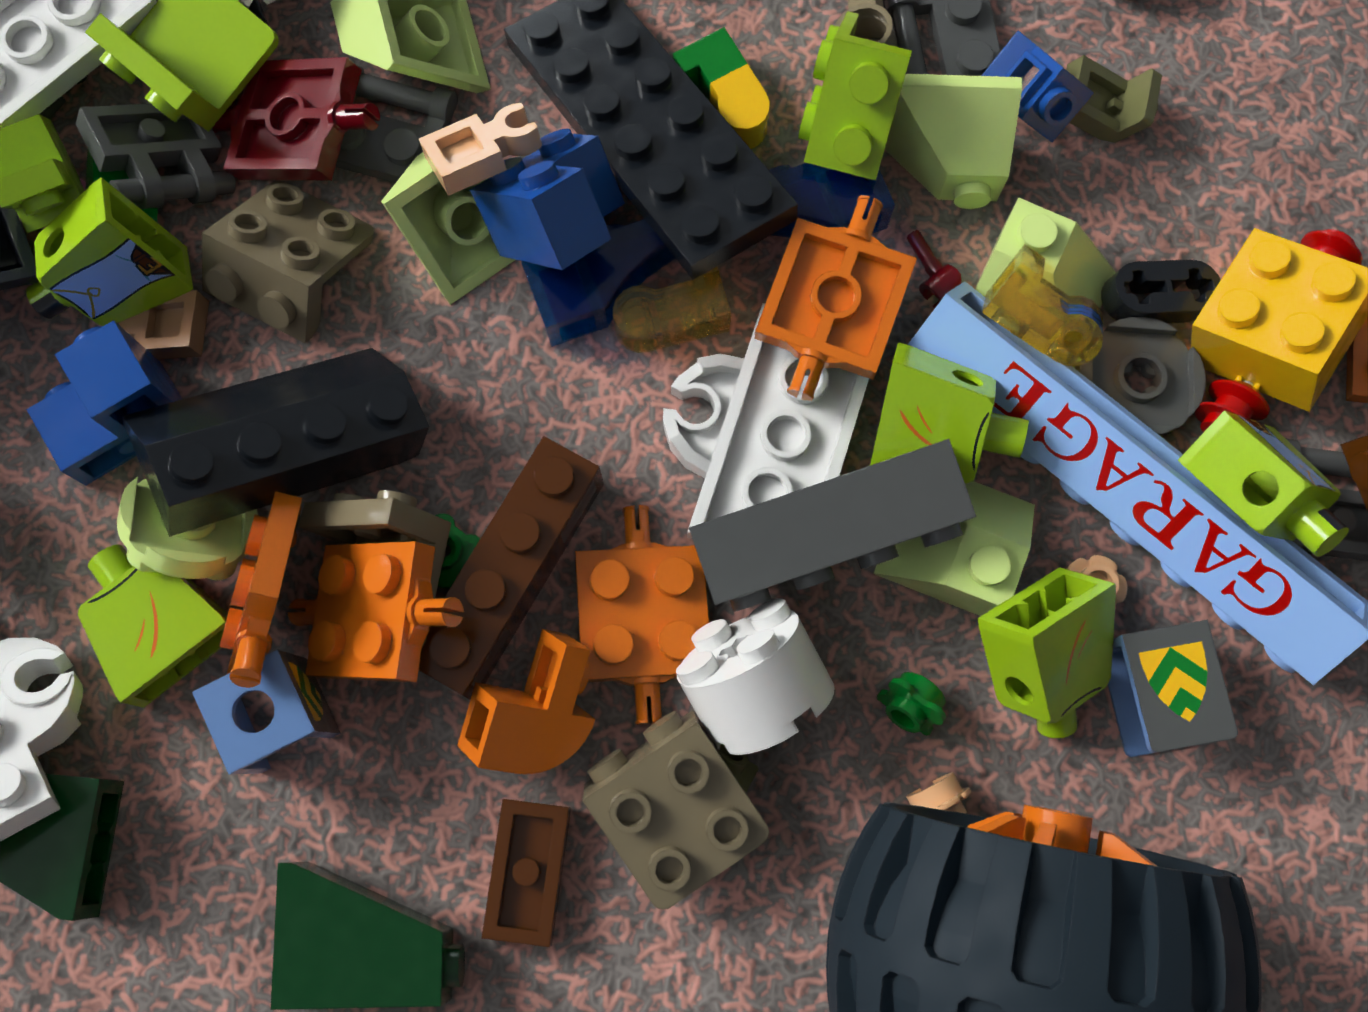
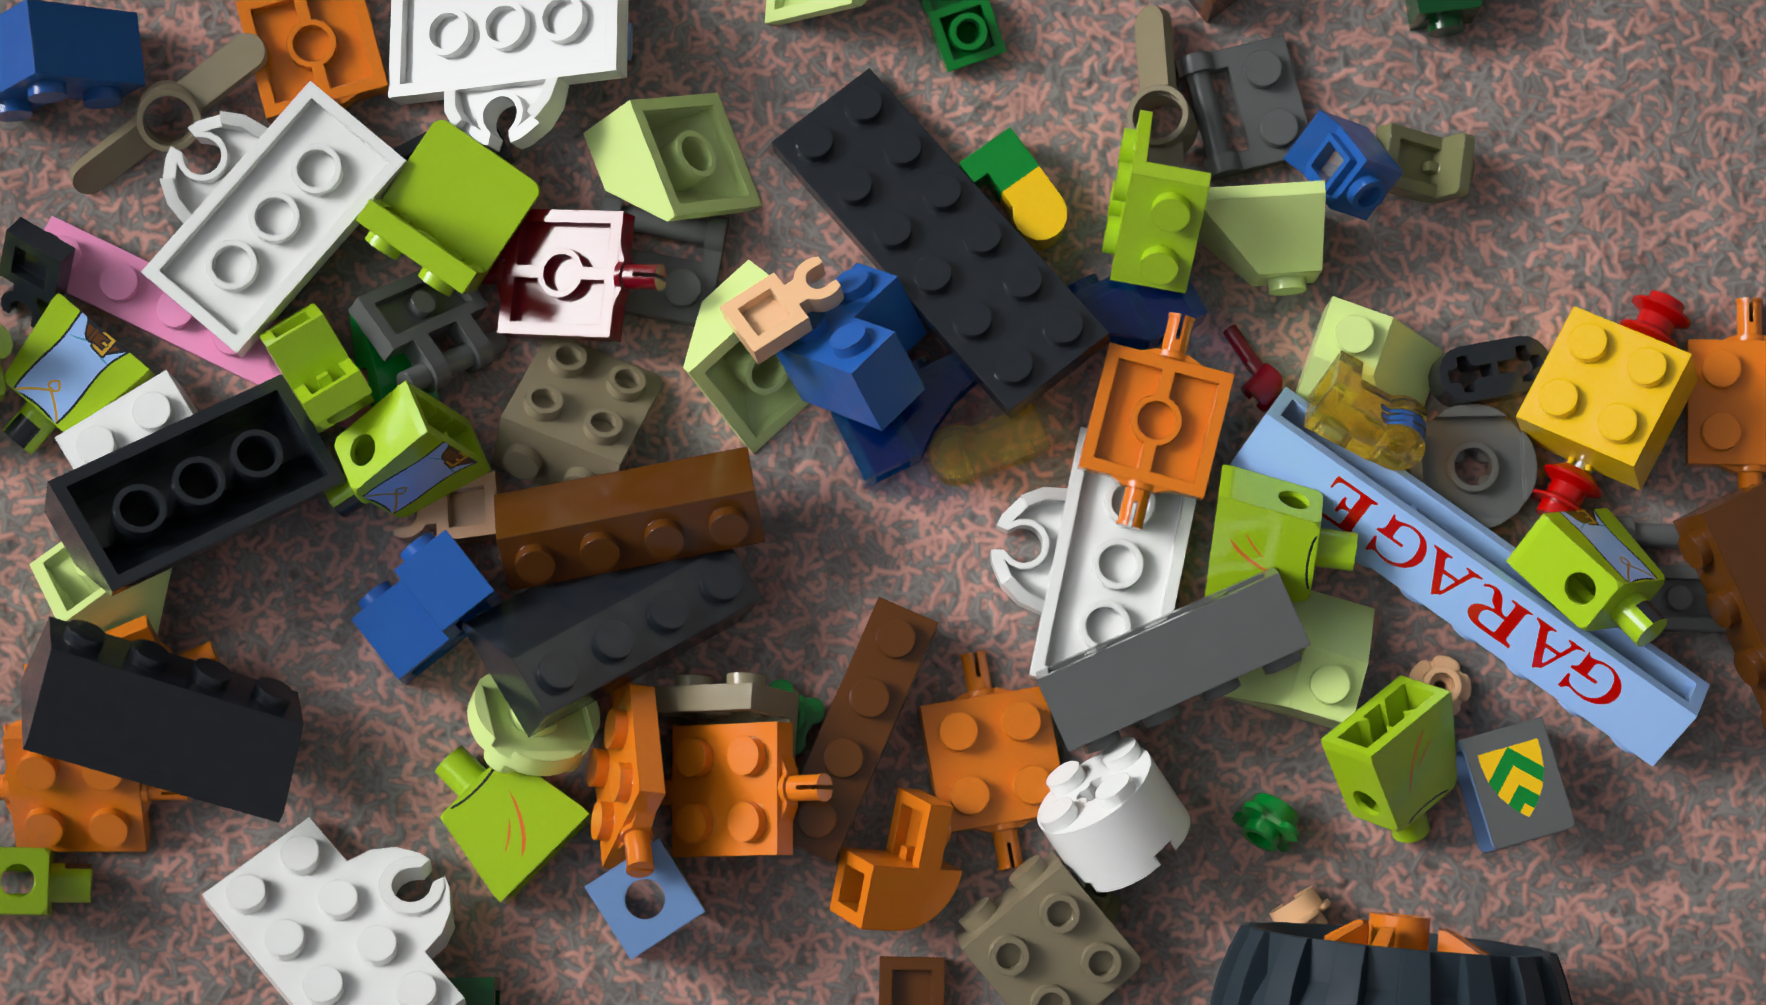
camera: 10 degrees left, 5 degrees up
(307, 339) = (628, 518): none -> reddish brown brick

